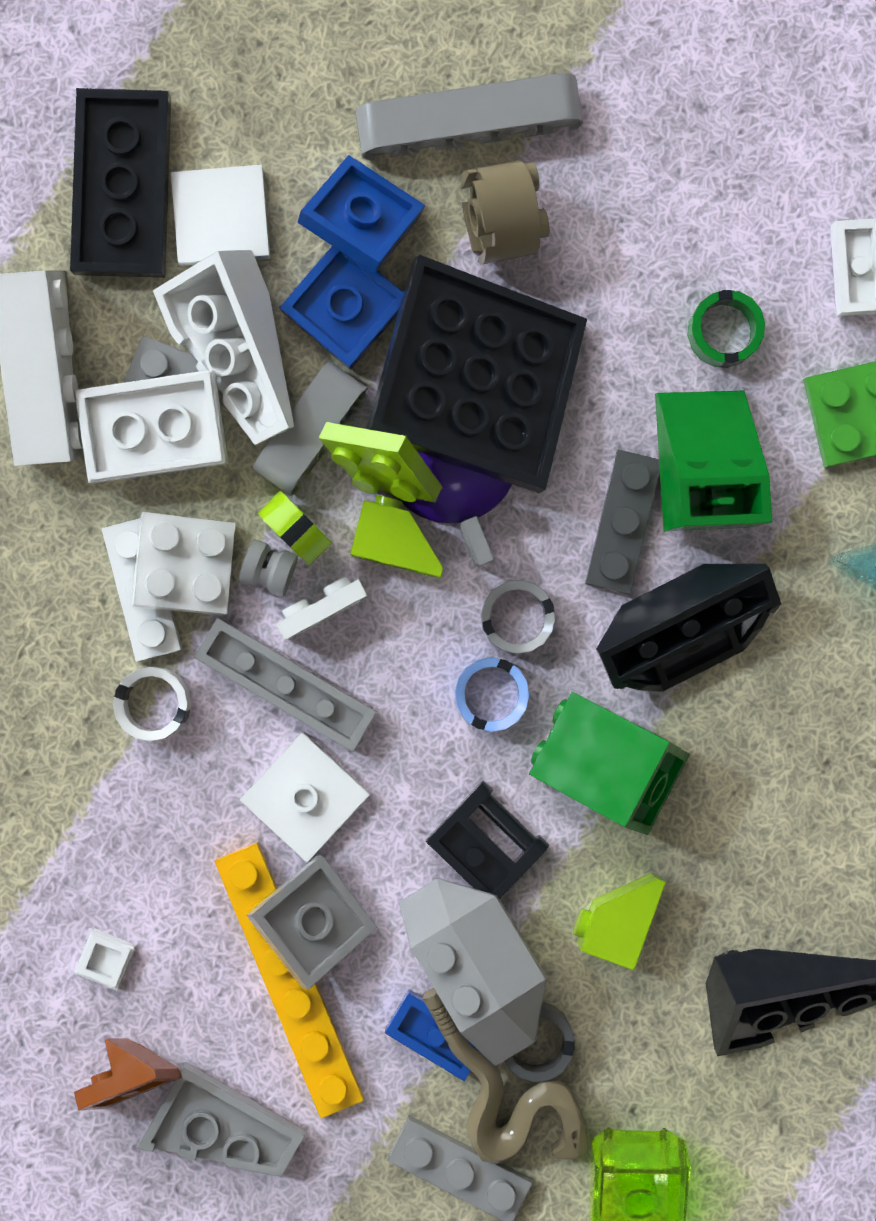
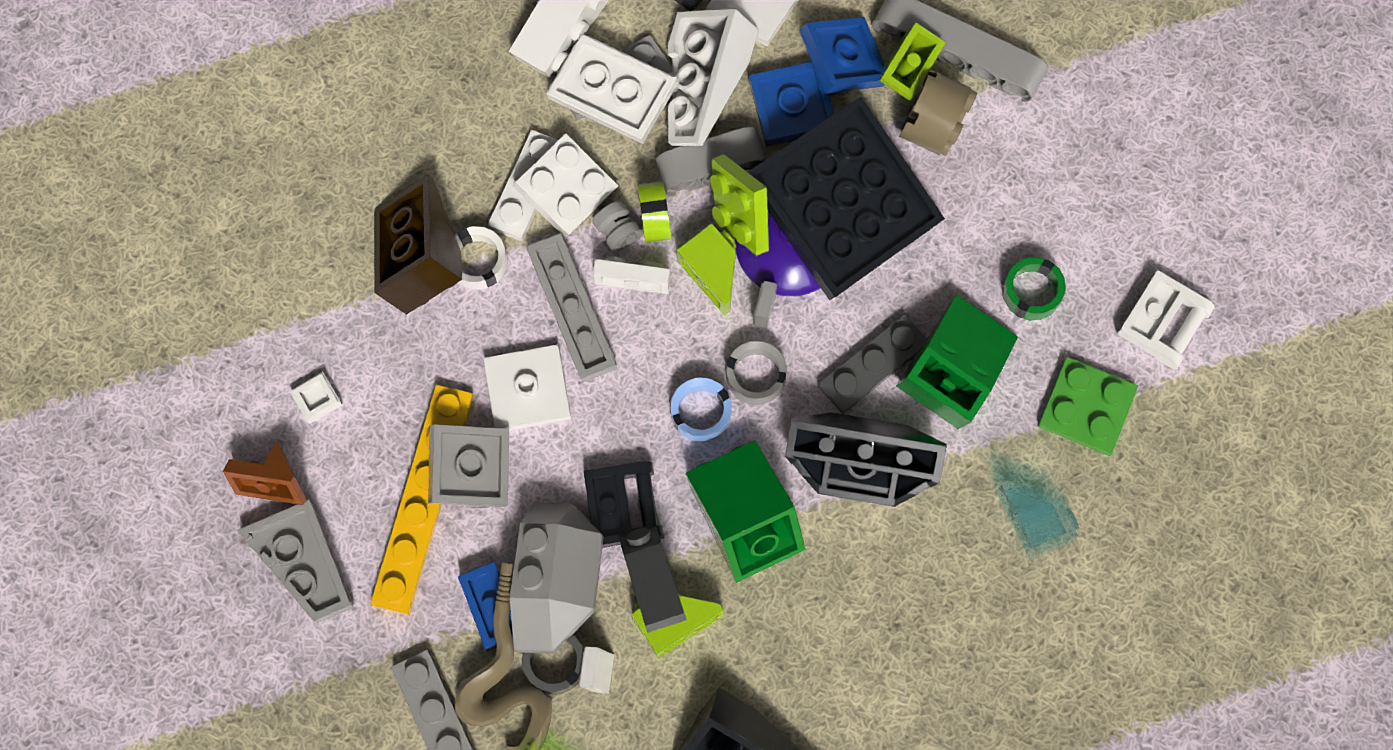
camera: 40 degrees right, 15 degrees down
(84, 744) = (414, 248): none -> dark brown slope
(438, 175) = (911, 61): none -> lime slope
(582, 911) = (652, 579): none -> dark grey slope
(583, 1022) = (596, 670): none -> white tile

